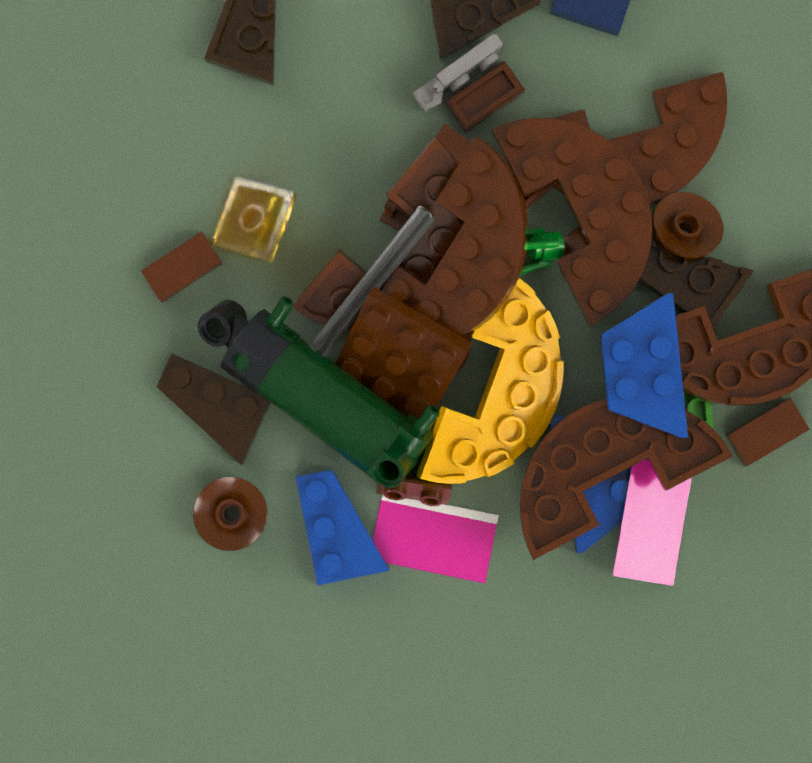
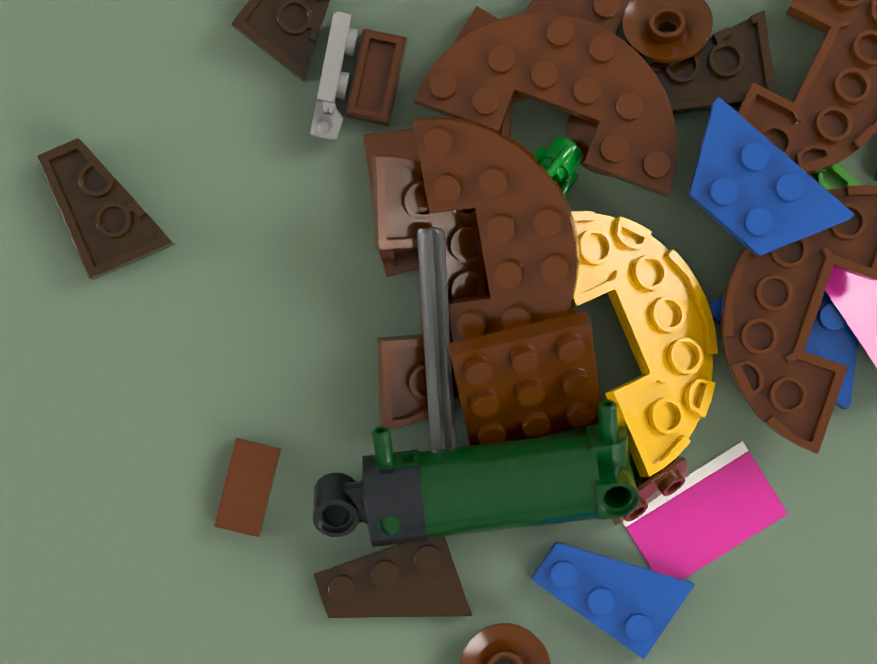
camera: 40 degrees left, 0 degrees up
(253, 220) = (273, 383): clear yellow slope -> none

